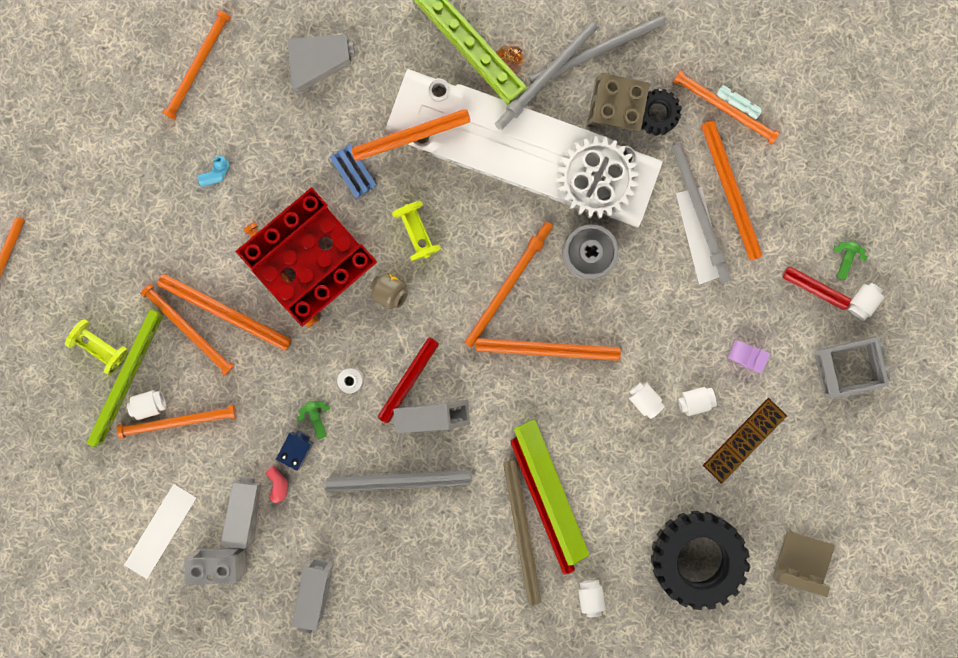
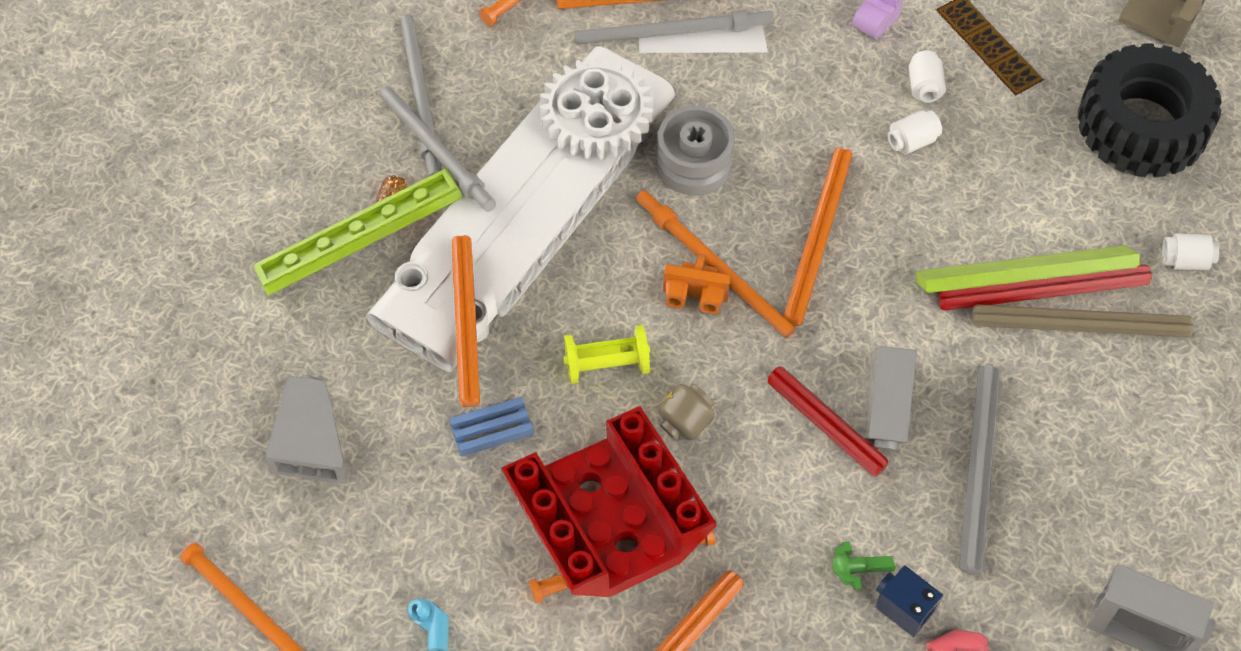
camera: 75 degrees left, 30 degrees down
(358, 380) = (812, 490): white brick -> none
(481, 264) = (696, 281): none -> orange hips
(618, 102) = (498, 81): dark tan bracket -> none
(672, 107) = (524, 29): black tyre -> none

